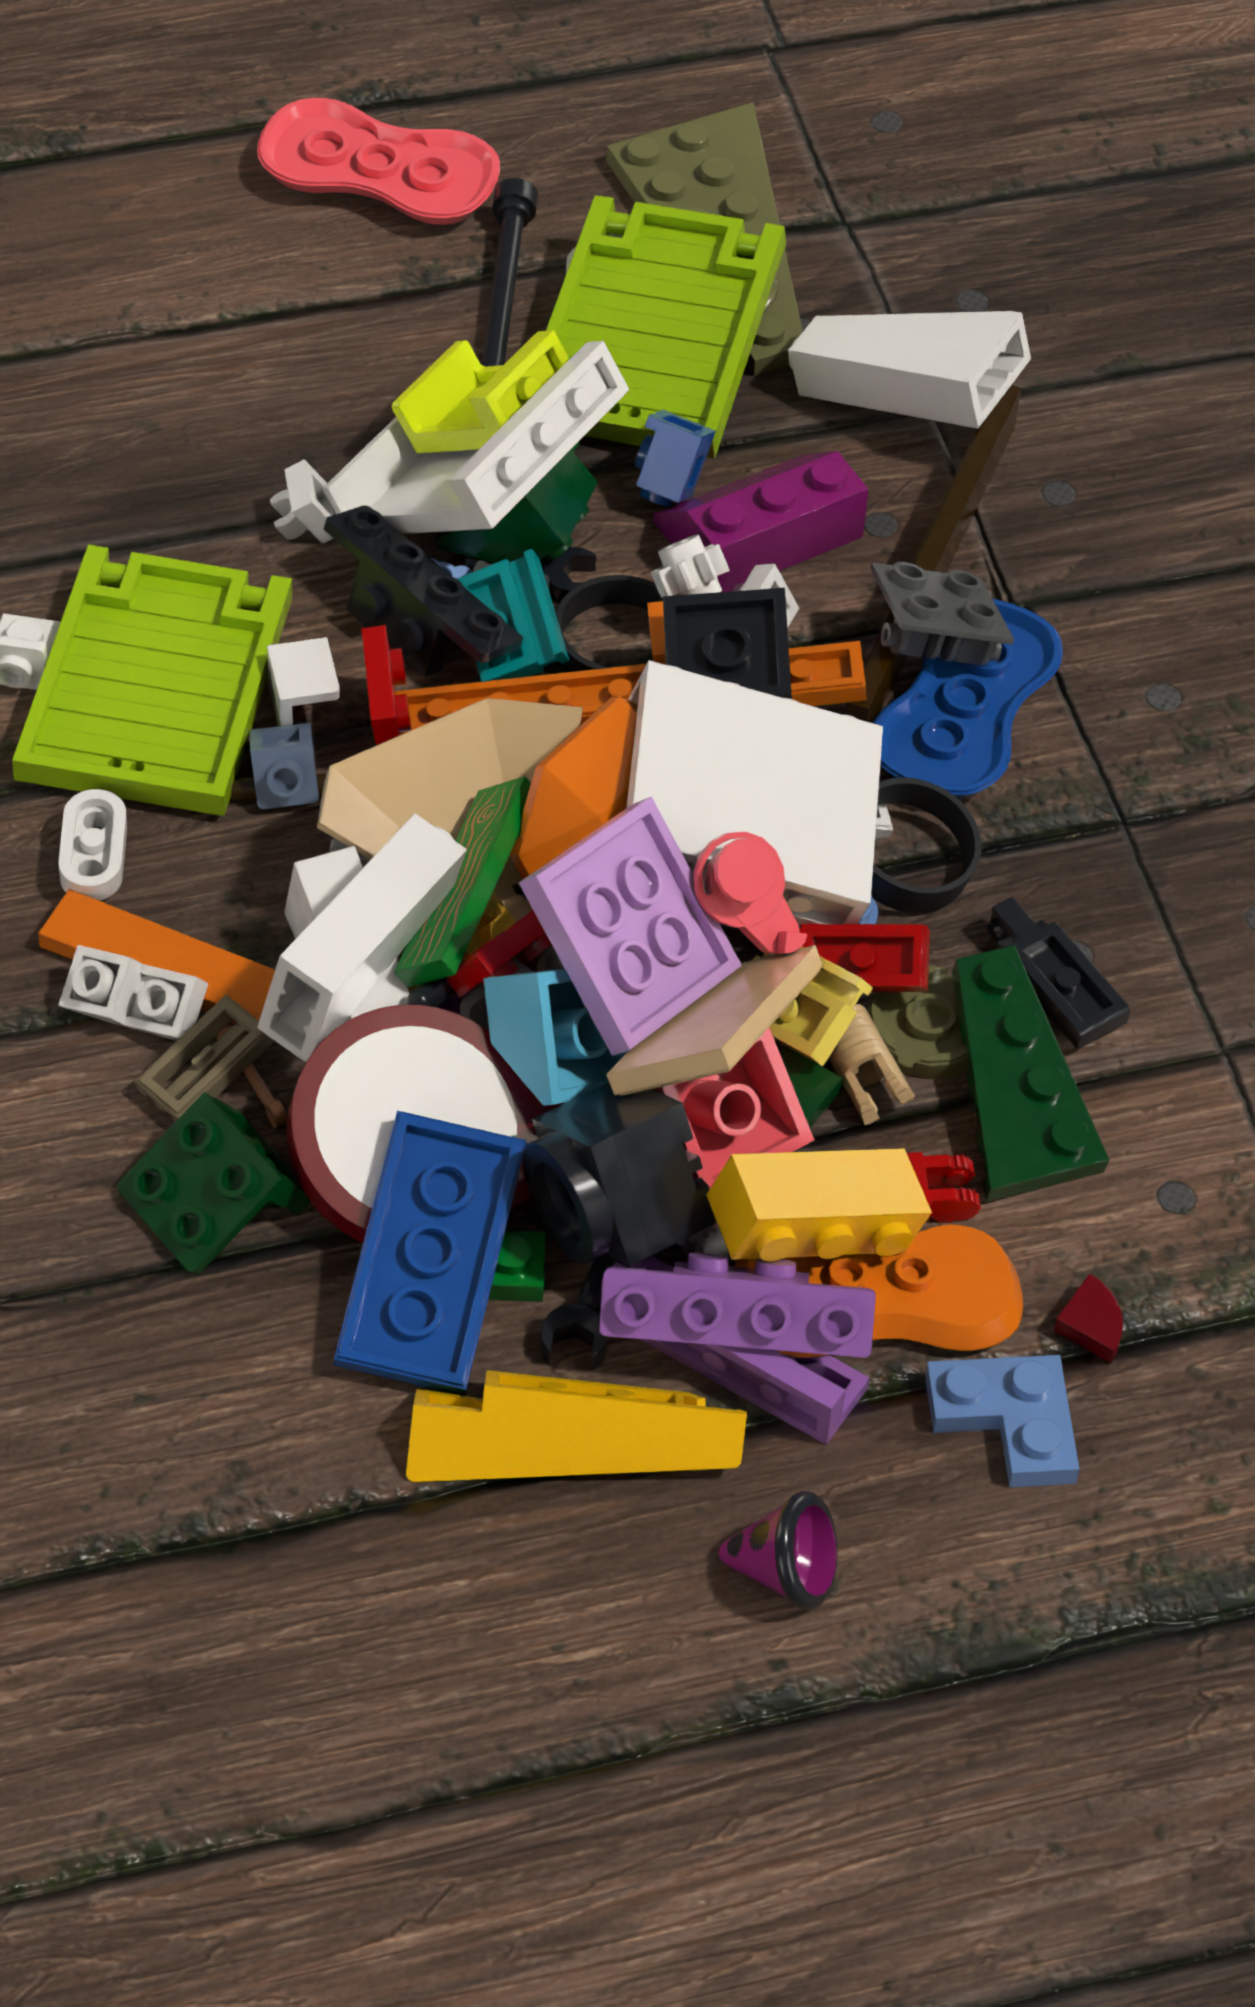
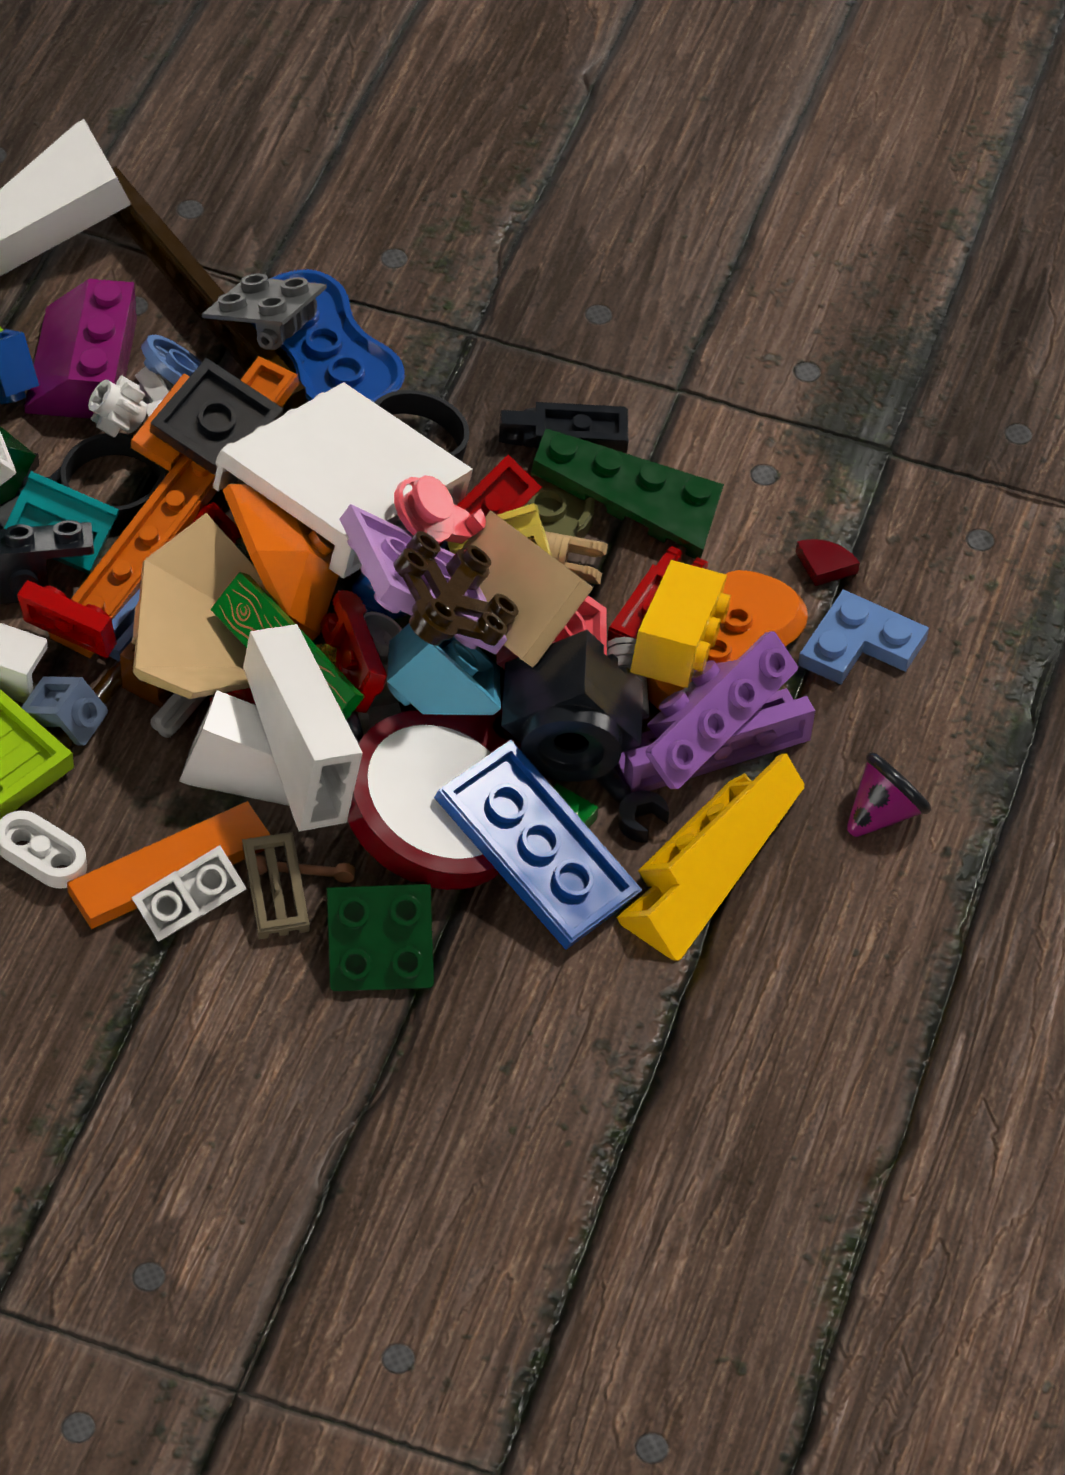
camera: 55 degrees left, 0 degrees up
(610, 954) = (435, 617): none -> dark brown plant
(808, 592) = (168, 358): none -> medium blue wheel

